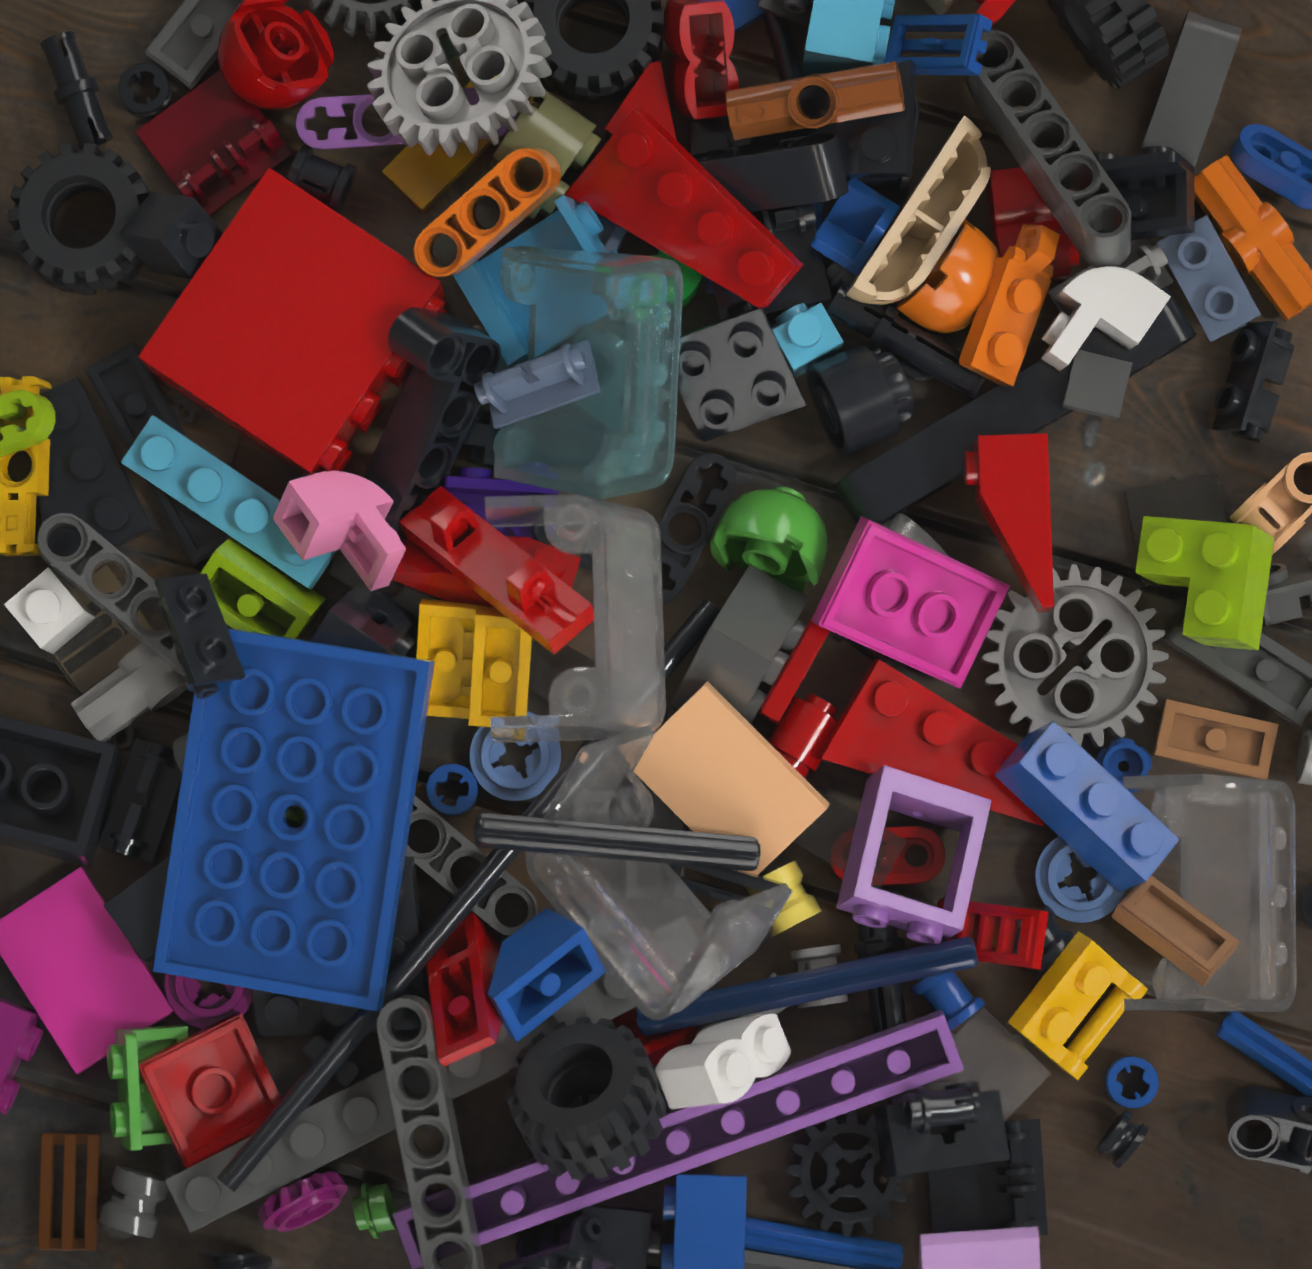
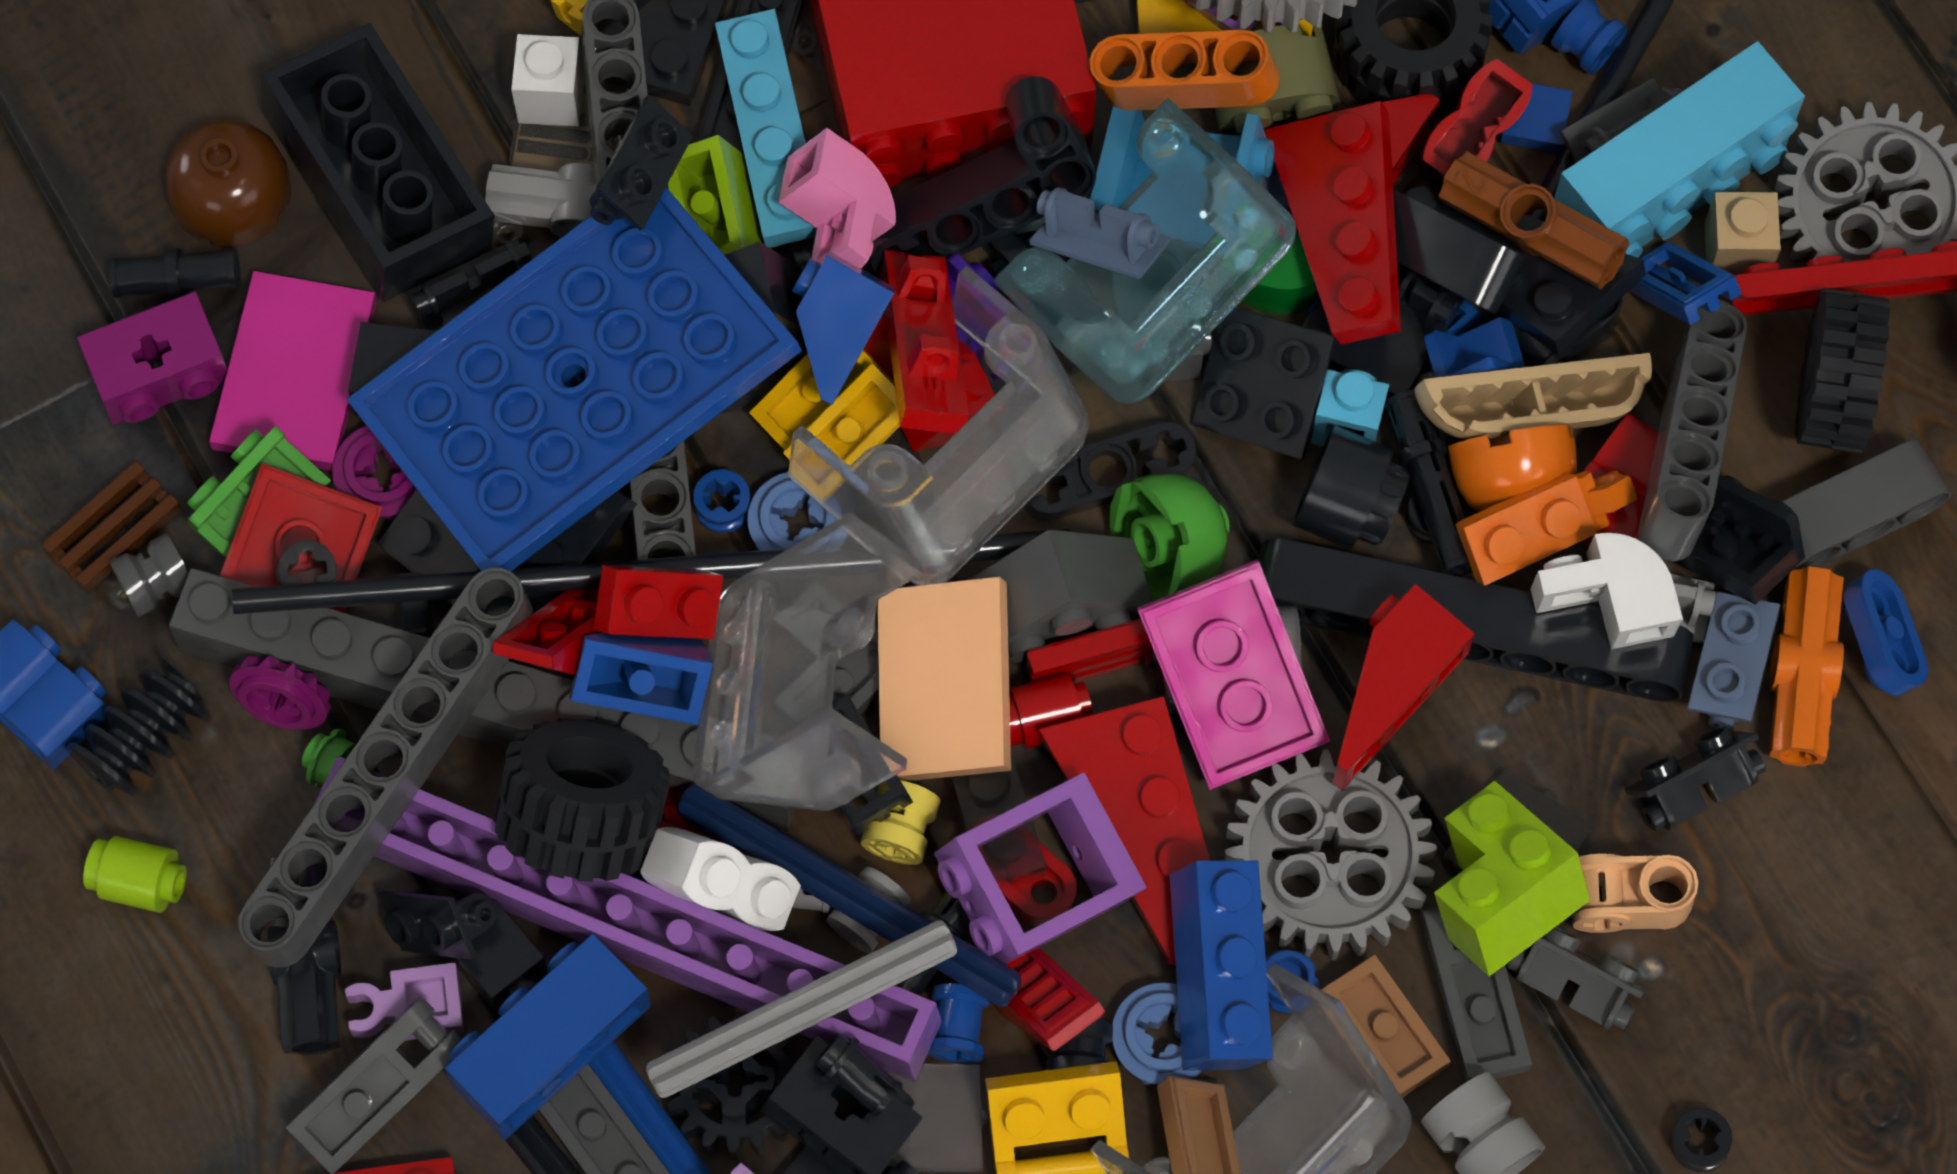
camera: 40 degrees right, 15 degrees down
(226, 1116) = (318, 556): none -> black bush
(428, 607) = (837, 317): none -> blue slope
(503, 918) = (658, 602): none -> red plate
(616, 842) = (807, 629): black axle -> none
(865, 1102) = (801, 1009): none -> light grey axle
(1097, 385) = (1556, 647): dark grey tile -> none

